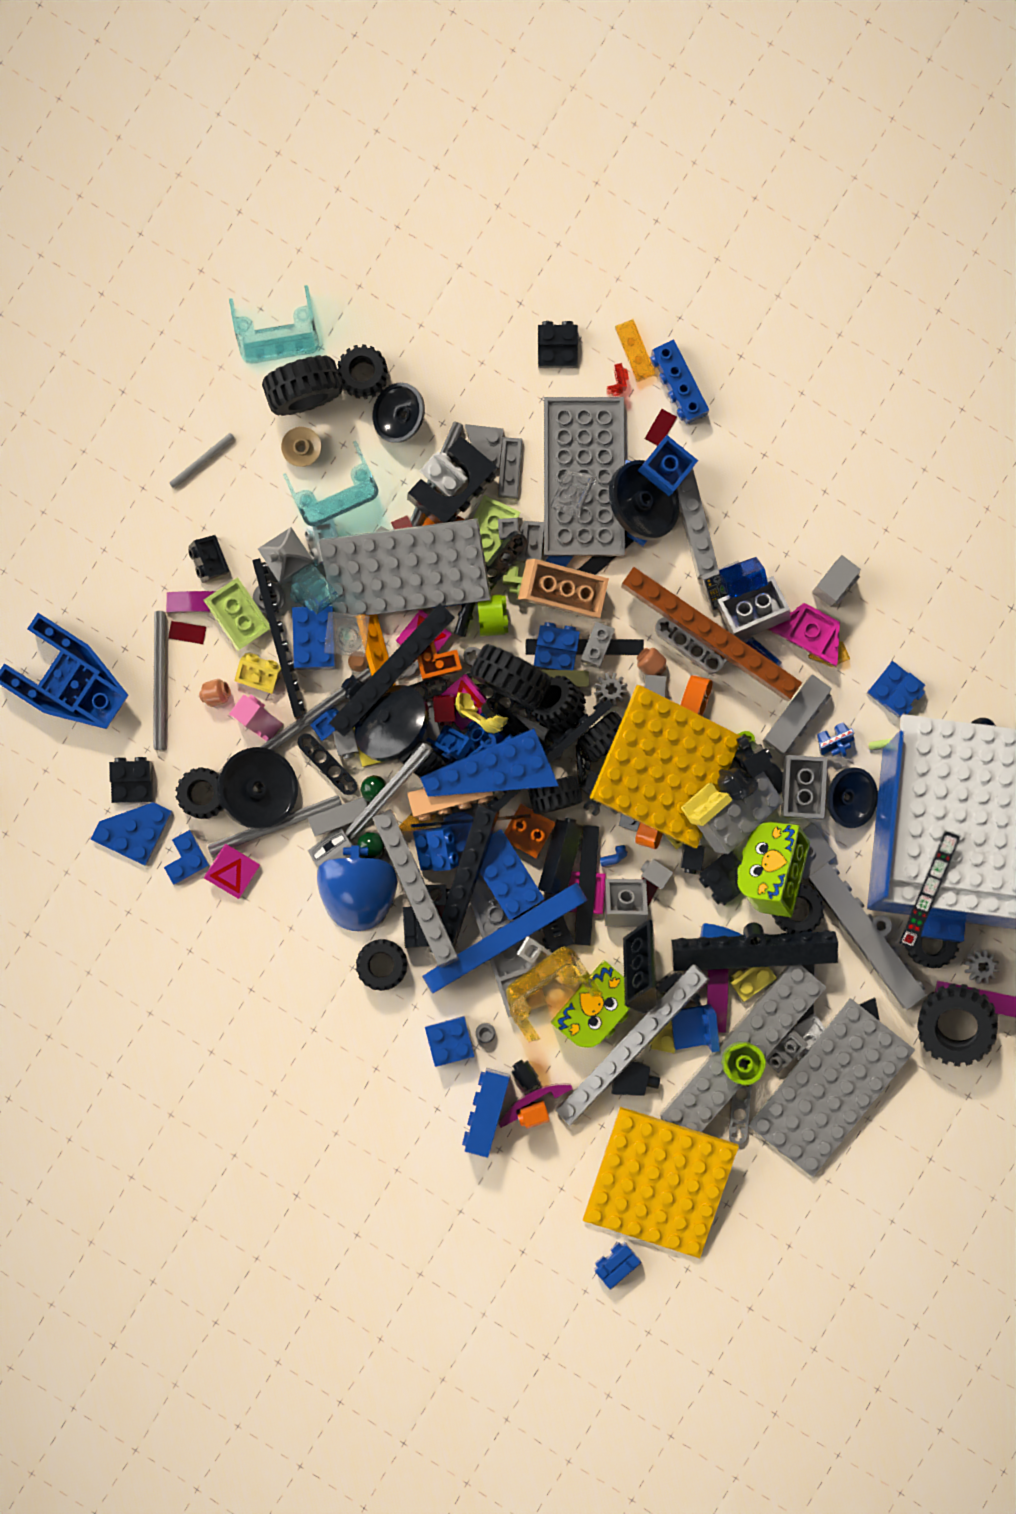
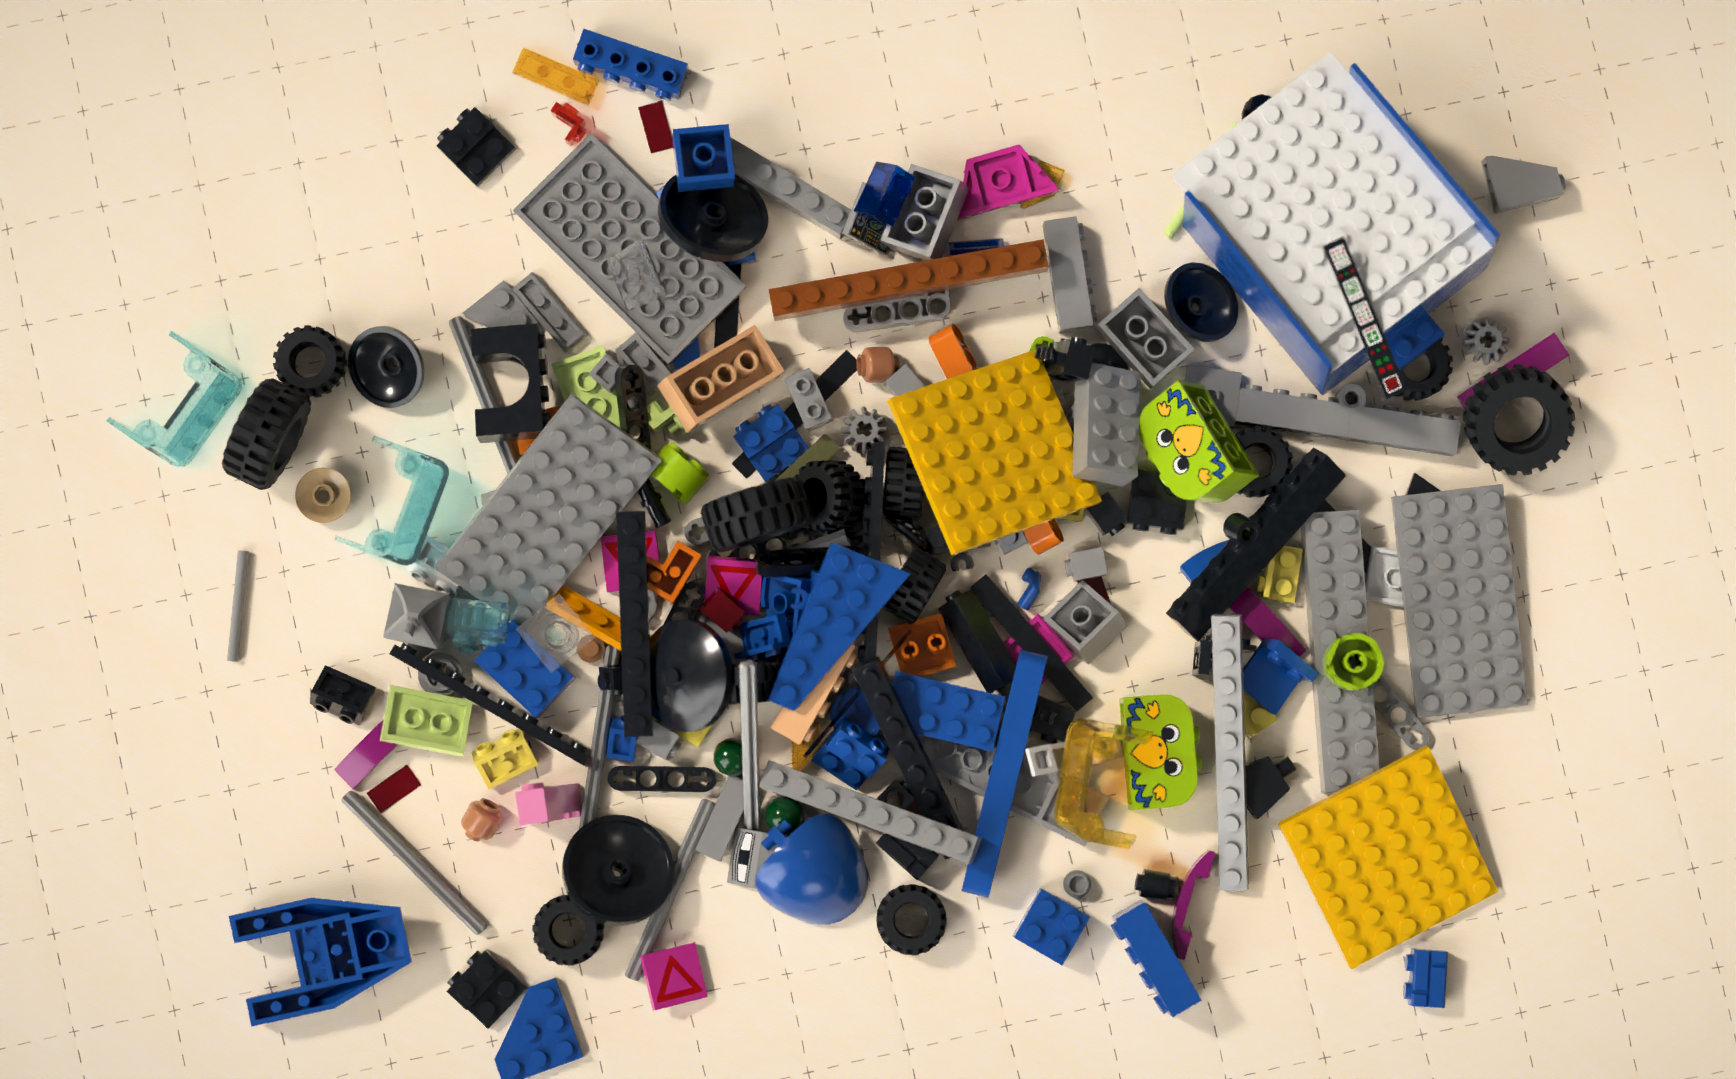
camera: 50 degrees left, 0 degrees up
(191, 859) = (622, 1004): blue plate -> none
(403, 522) = (498, 471): dark red sticker -> none
(443, 474) = (491, 382): white bracket -> none
(466, 708) = (744, 589): light yellow piece -> none
(533, 1114) = (1203, 915): orange brick -> none
(640, 968) = (1164, 671): black slope -> none
(705, 805) = (1069, 450): light yellow bracket -> none
(736, 783) = (1078, 401): black piece -> none
(786, 1051) = (1382, 610): light grey slope -> none
(834, 583) = (976, 107): light grey brick -> none
(837, 744) = (1134, 265): blue hips -> none
(897, 689) = (1139, 155): blue plate -> none

